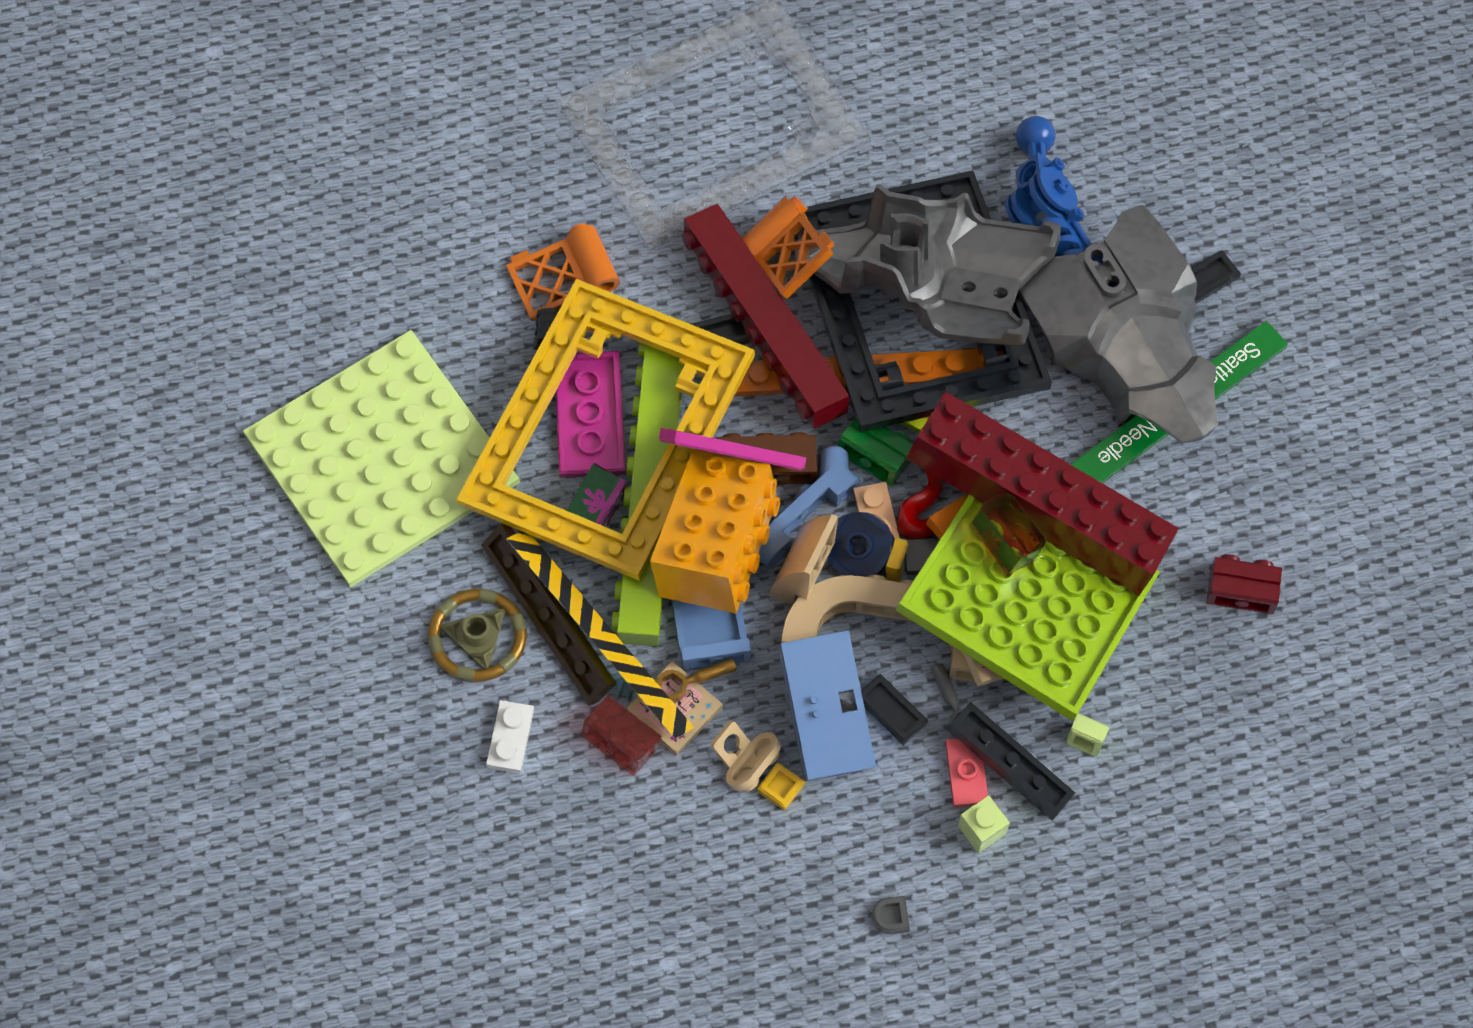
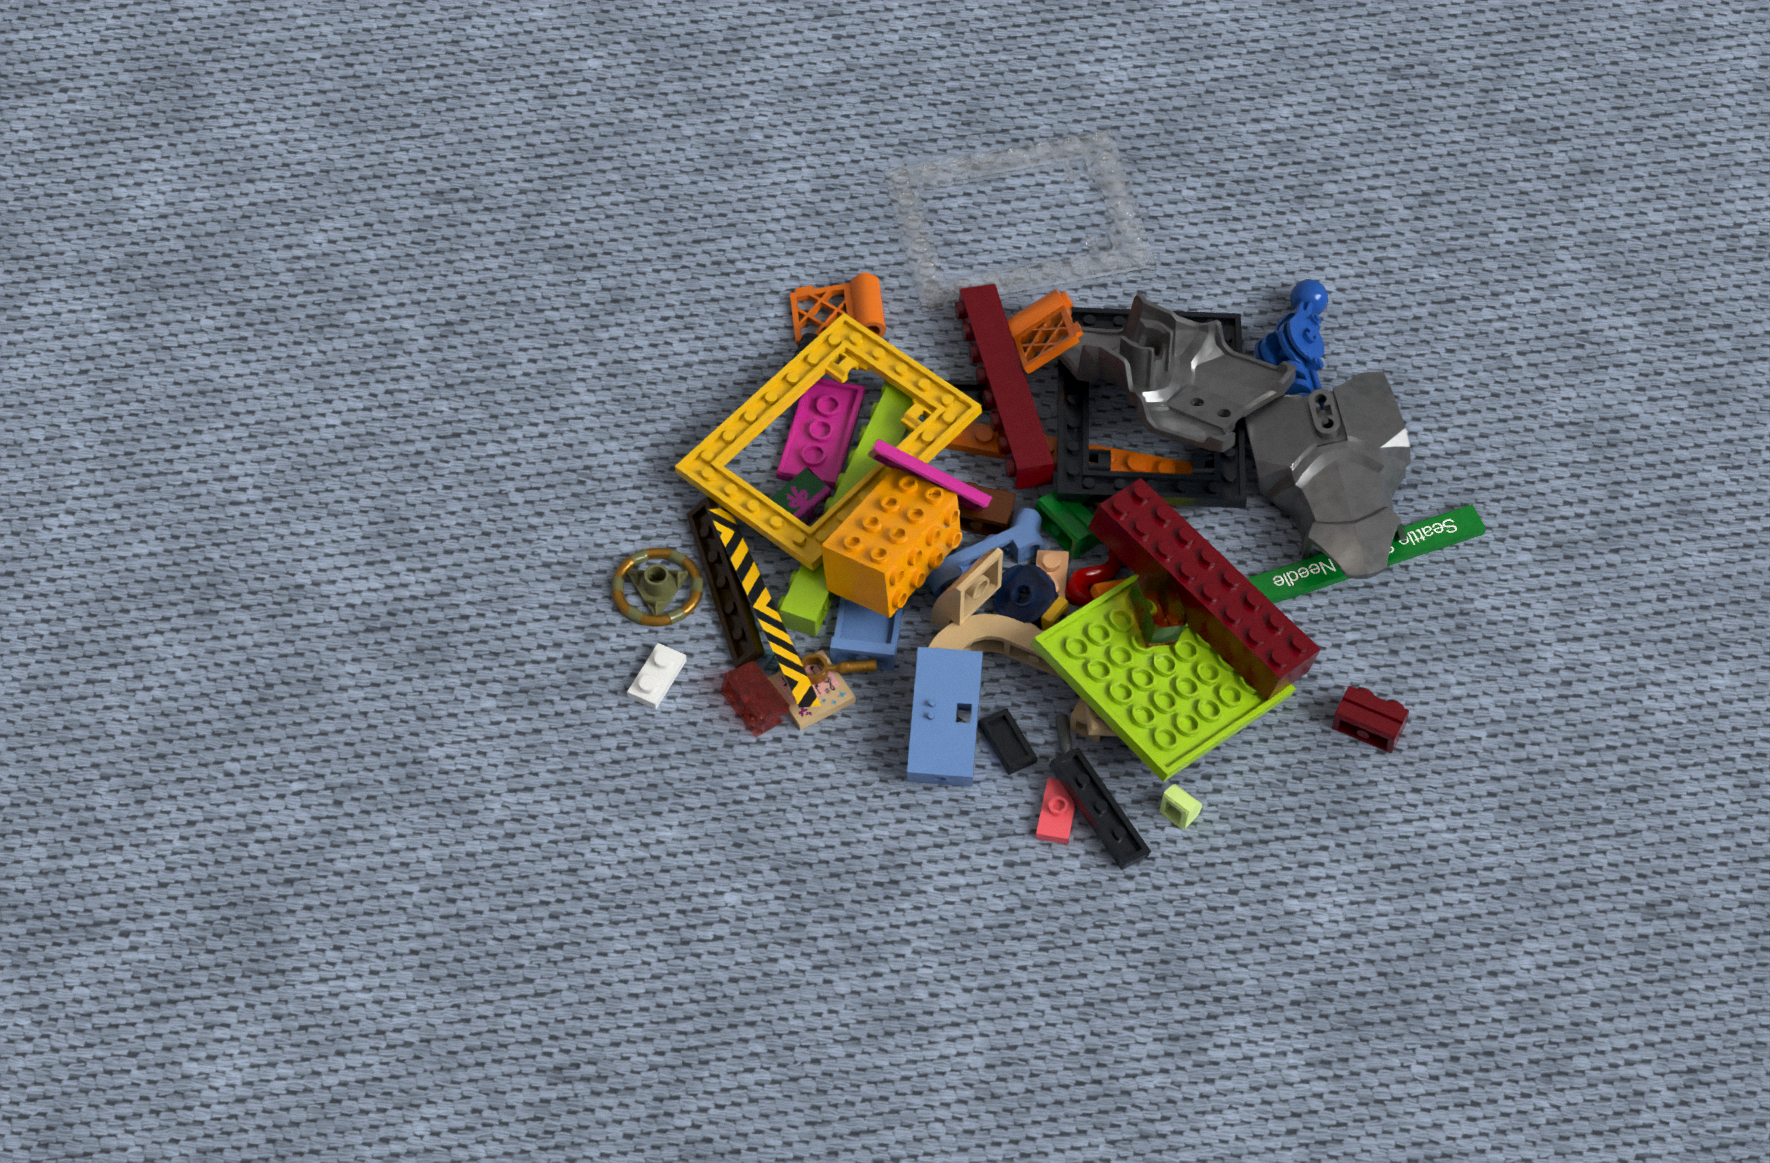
camera: 20 degrees right, 10 degrees down
(374, 456) = (617, 420): yellowish green plate -> none
(750, 759) = (865, 747): tan bracket -> none
(781, 786) = (884, 778): yellow tile -> none
(891, 915) = (946, 910): dark grey tile -> none
(983, 824) = (1055, 854): yellowish green brick -> none
(1213, 275) = (1433, 456): black tile -> none

